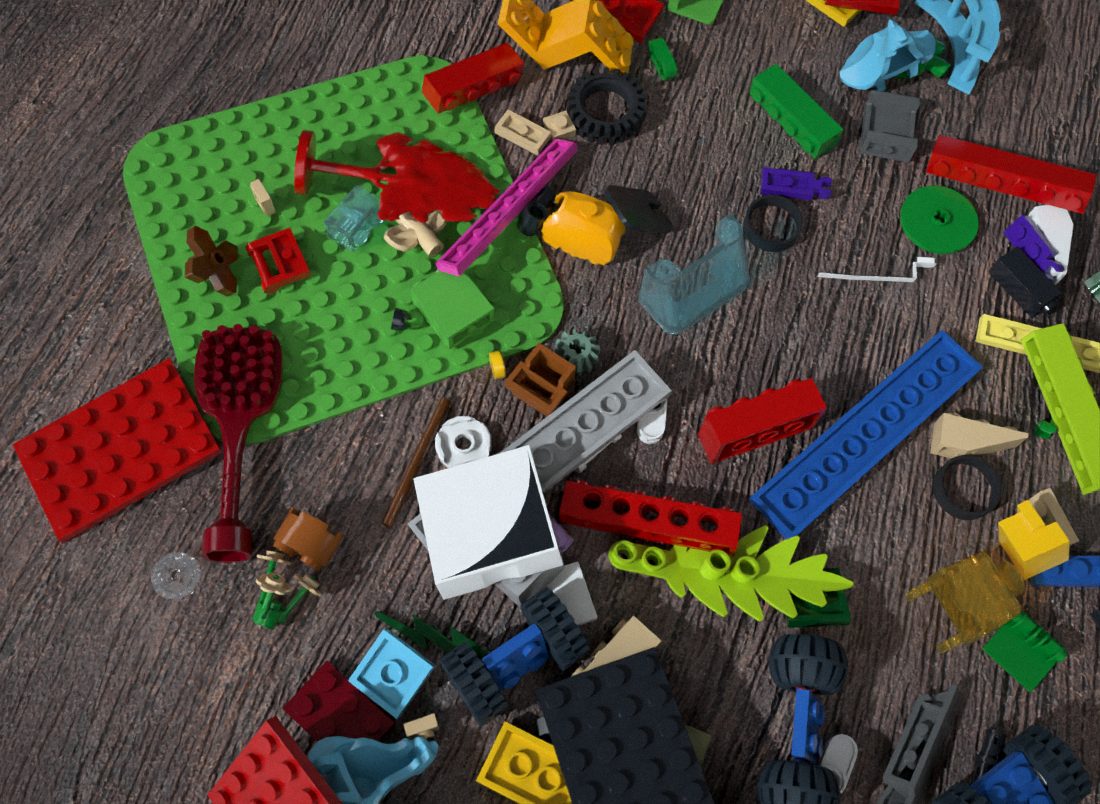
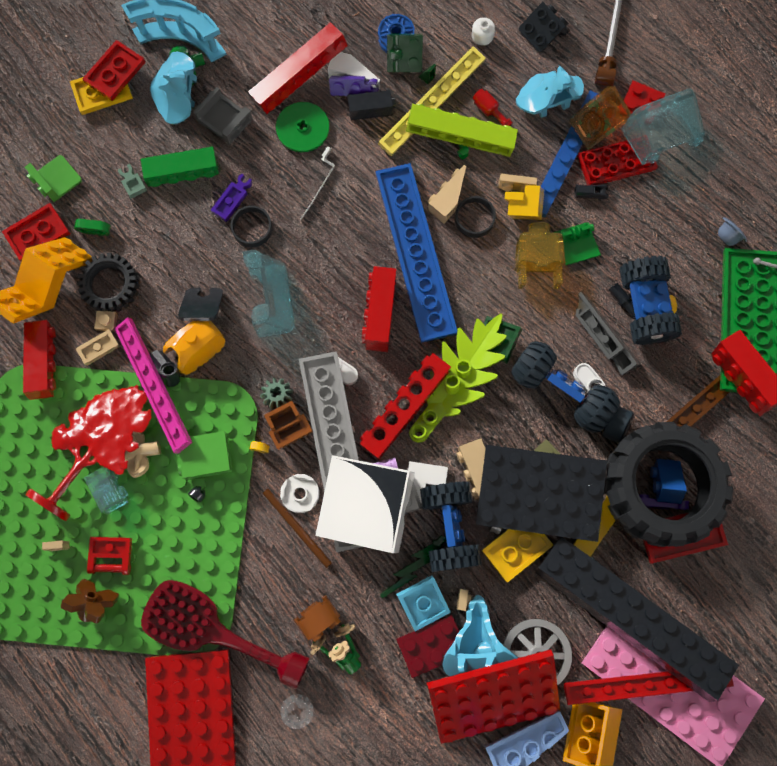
camera: 60 degrees left, 10 degrees up
(742, 73) = (132, 182): none -> sand green plate

